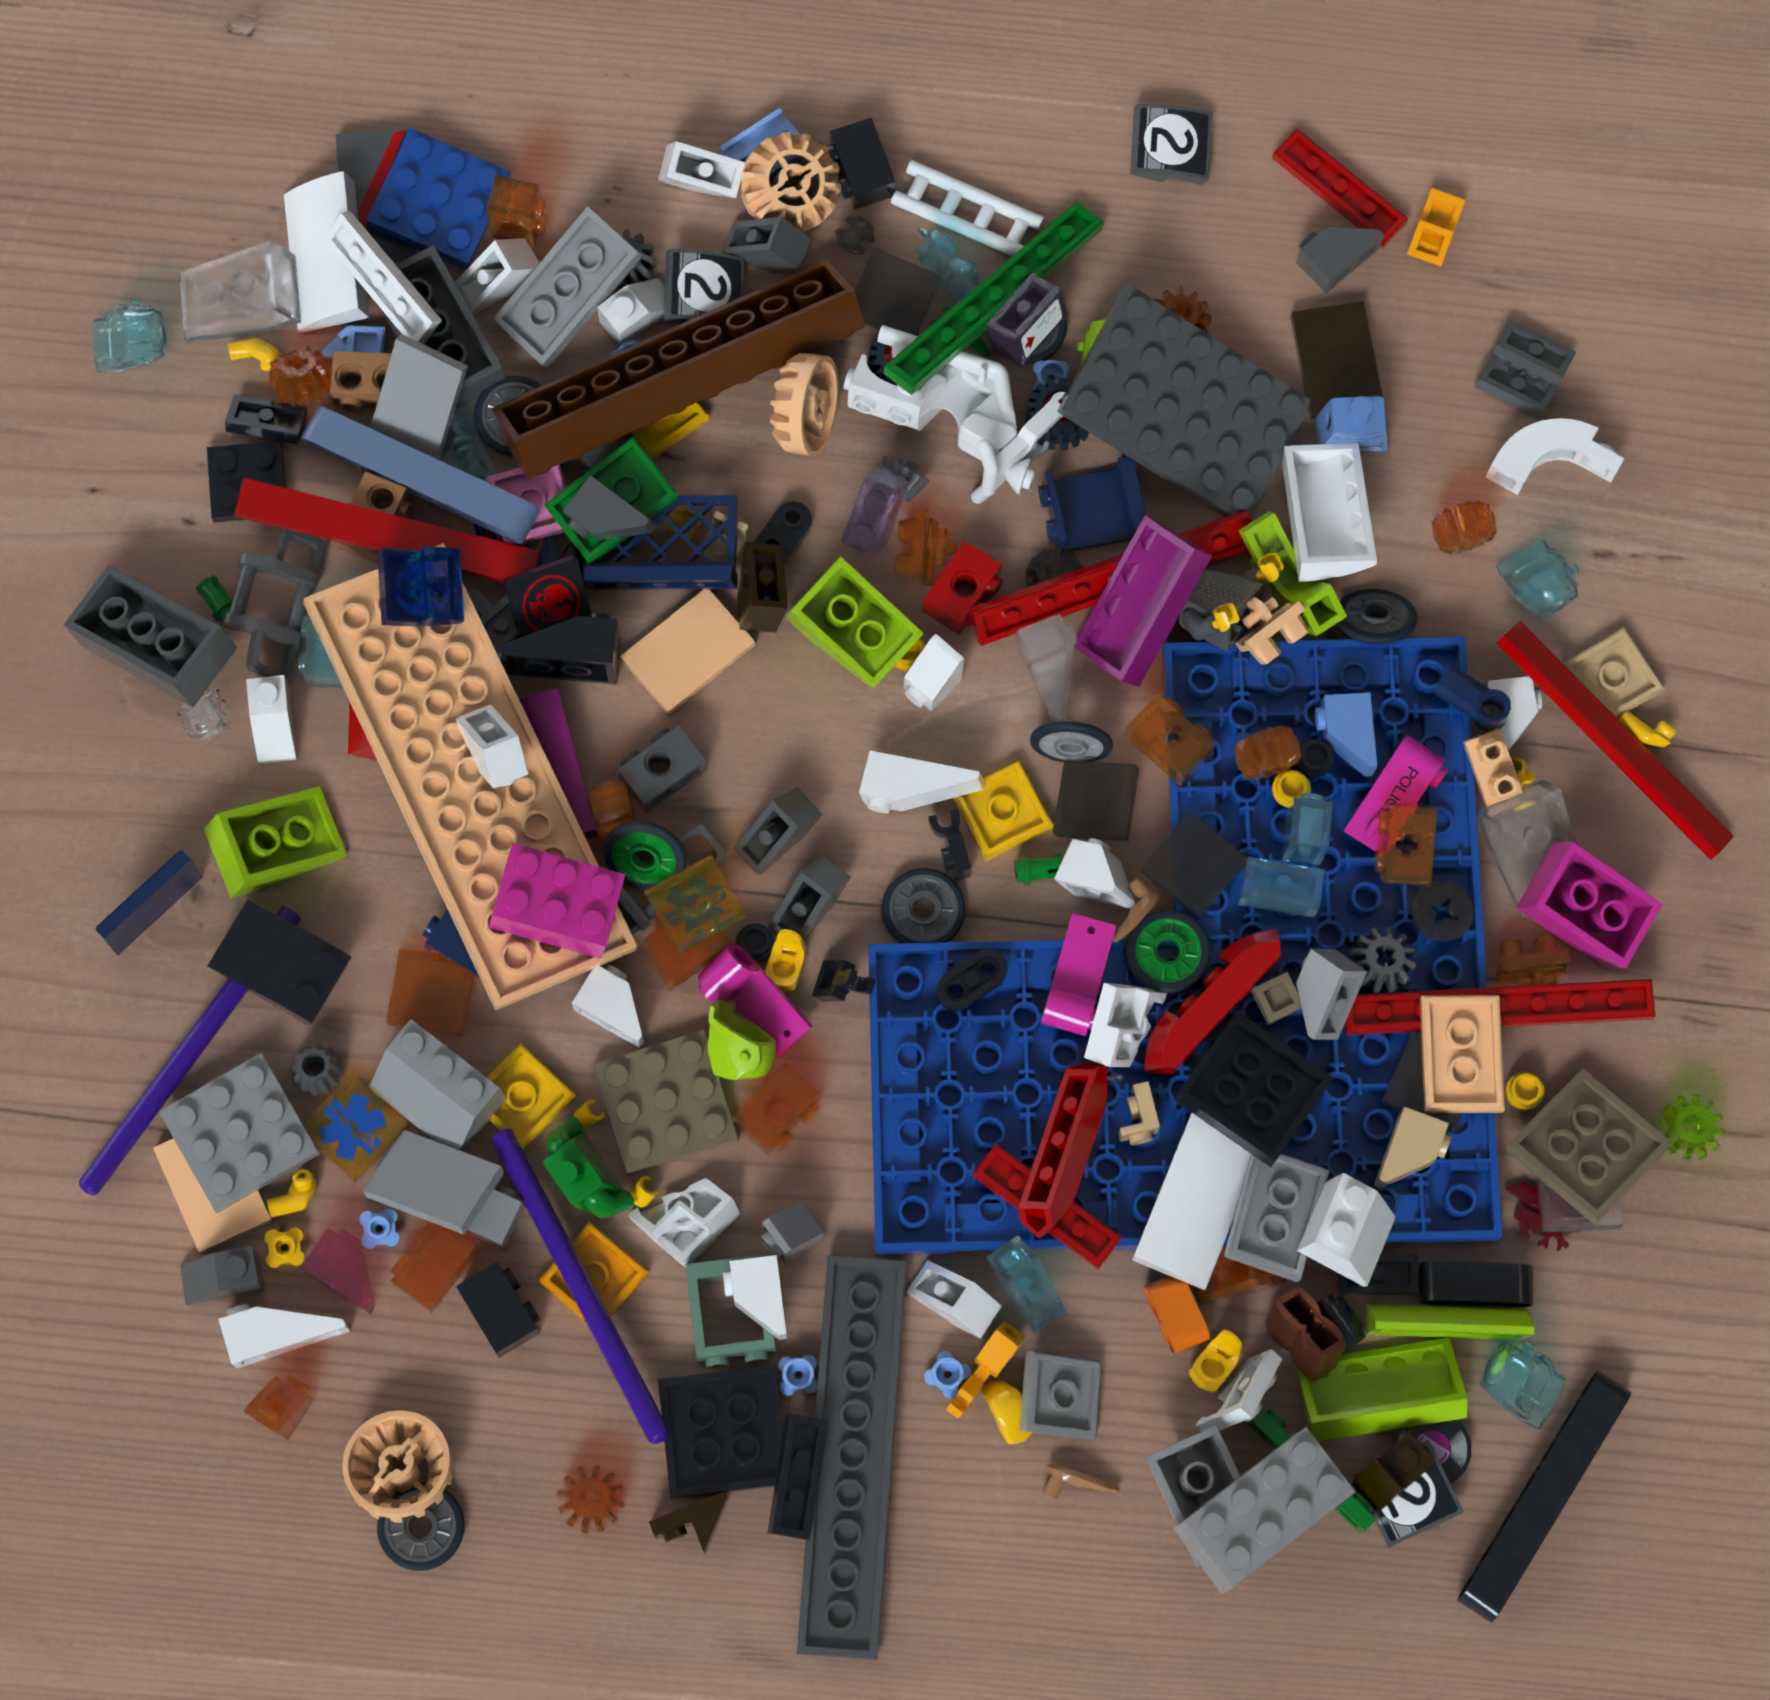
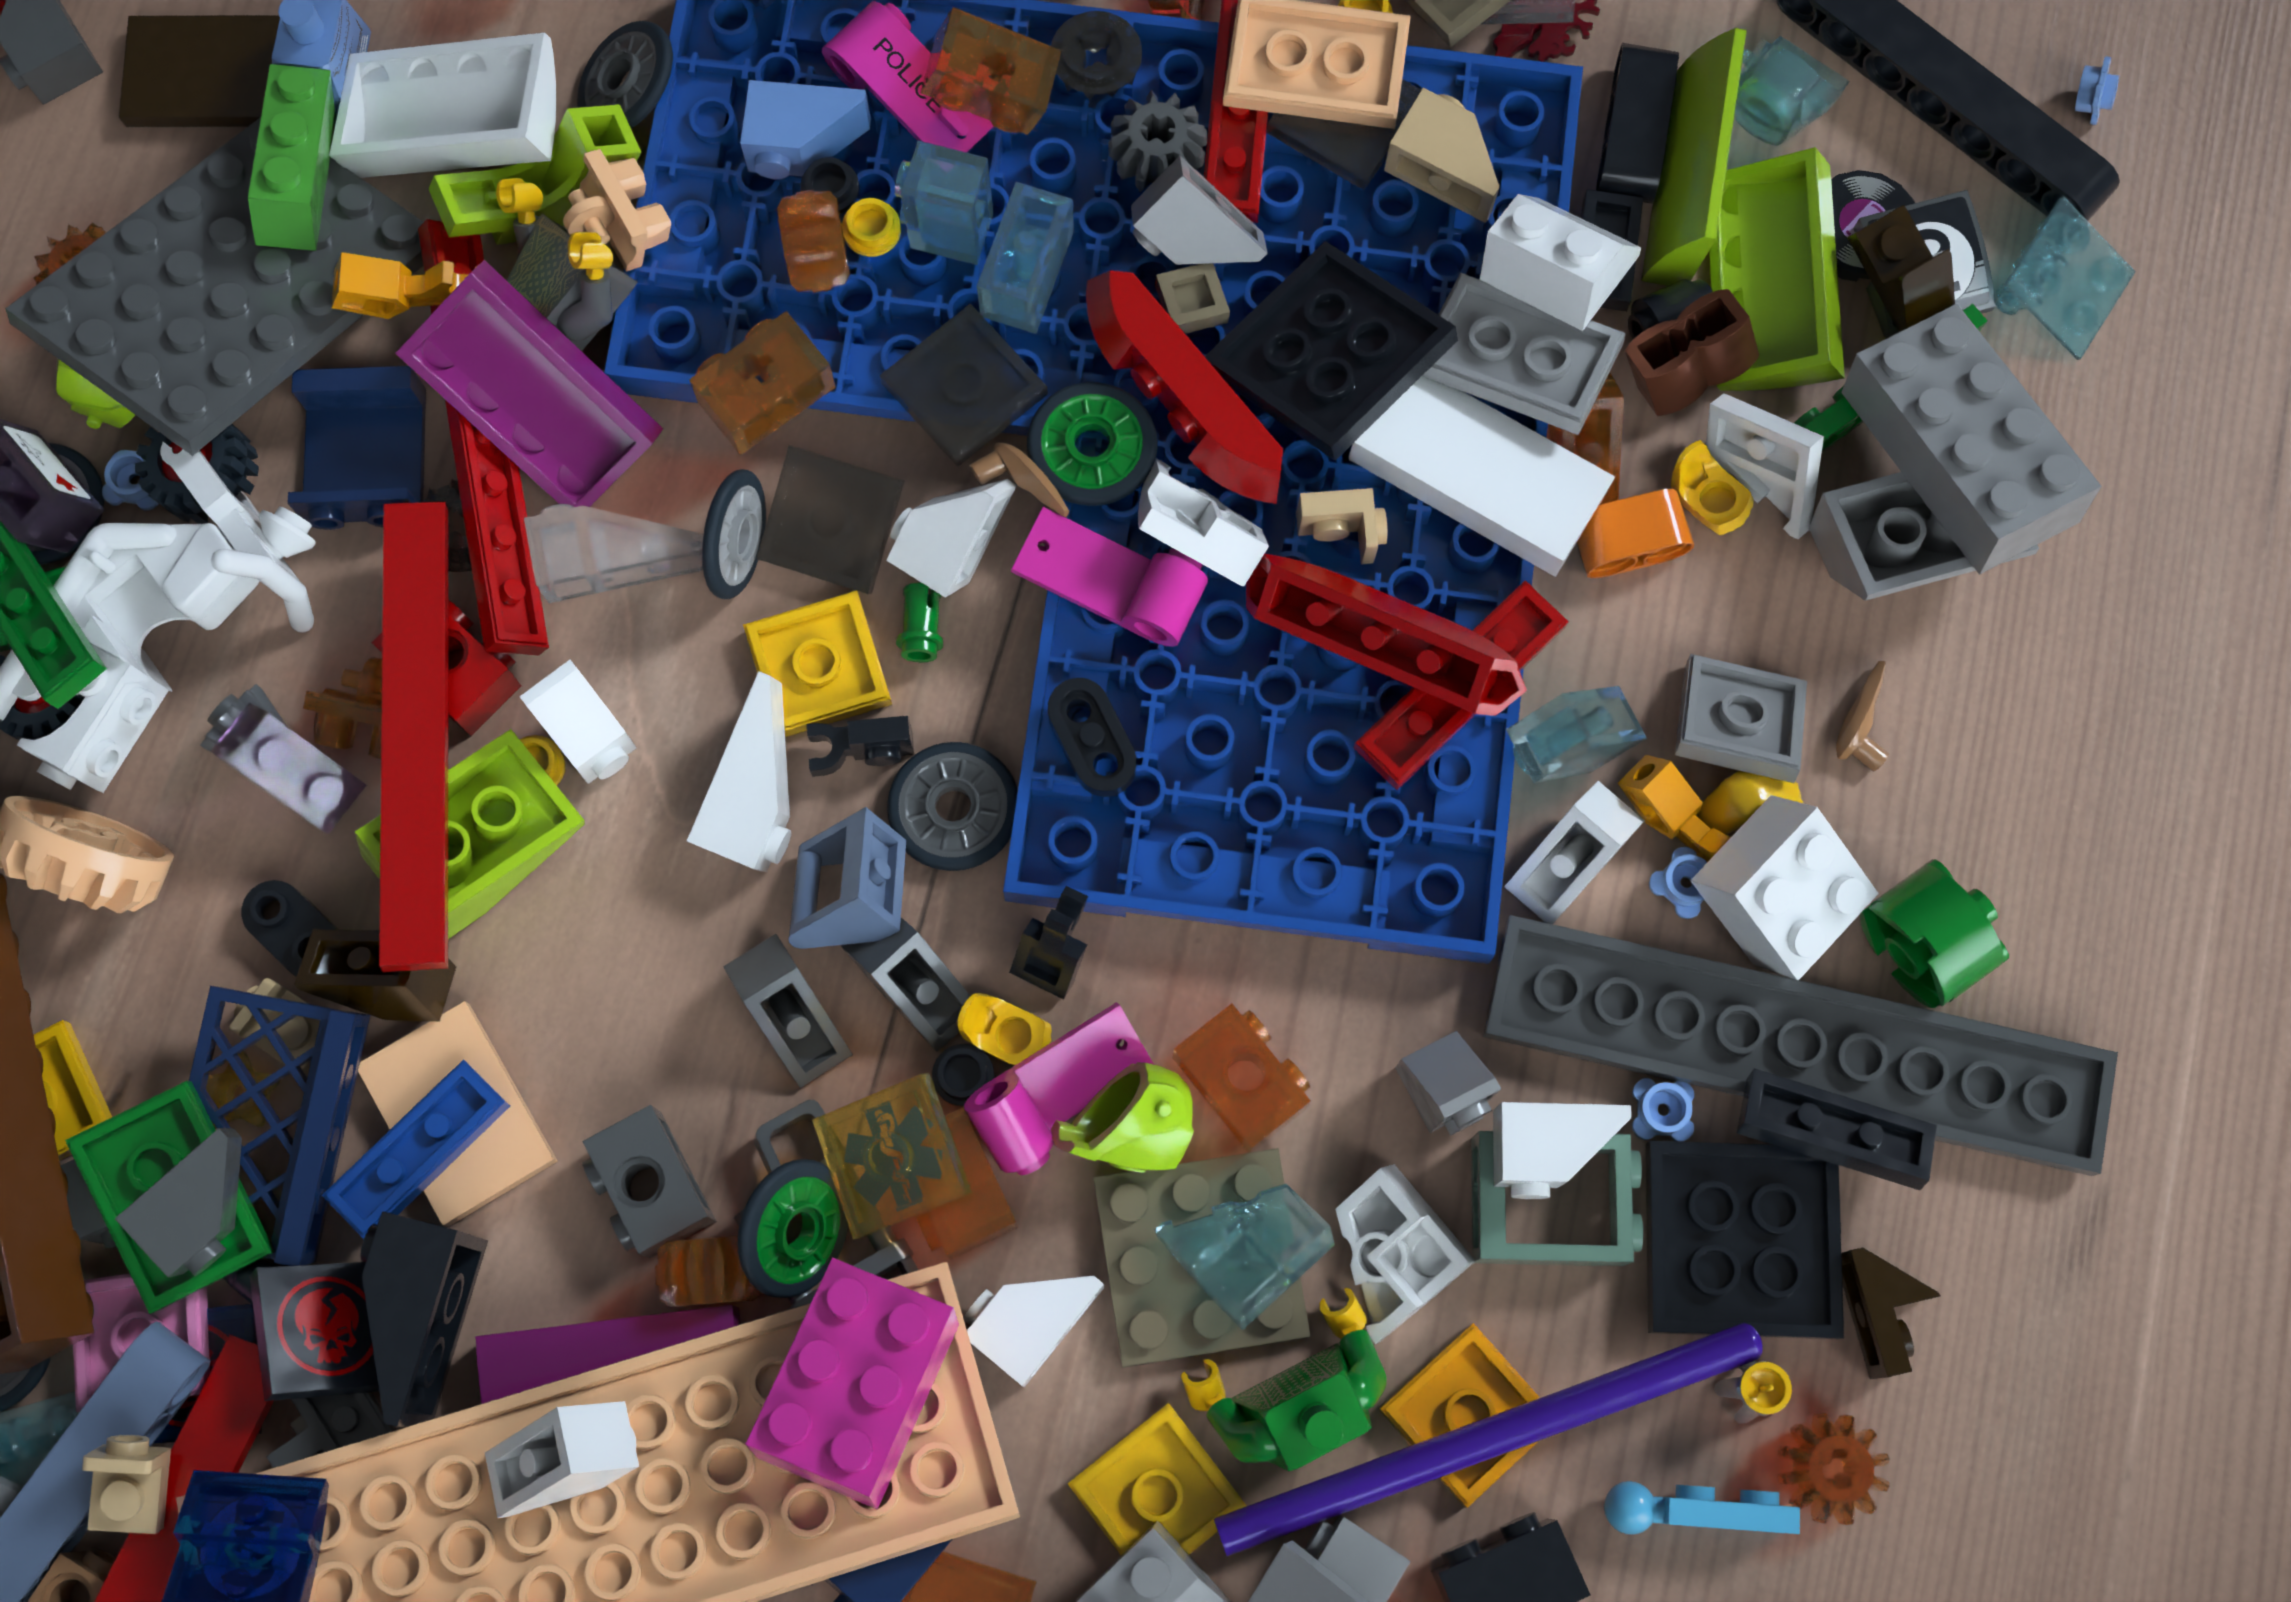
camera: 80 degrees left, 0 degrees up
(447, 515) = (128, 1485): none -> tan bracket
(551, 1379) = (1633, 1510): none -> medium azure plate
(632, 1447) = (1761, 1387): none -> yellow piece
(661, 632) = (416, 1149): none -> blue tile
(671, 1126) = (1249, 1249): none -> clear light blue slope
(859, 862) = (869, 886): none -> sand blue tile
(908, 577) = (414, 739): none -> red tile
(932, 1529) = (1935, 934): none -> green brick
(947, 1428) = (1785, 886): none -> white brick
(1194, 502) = (387, 286): none -> light orange piece
(1270, 425) = (292, 157): none -> bright green brick
(1415, 1593) = (2066, 278): none -> clear light blue hinge
(1564, 1602) = (2096, 90): none -> light blue plate

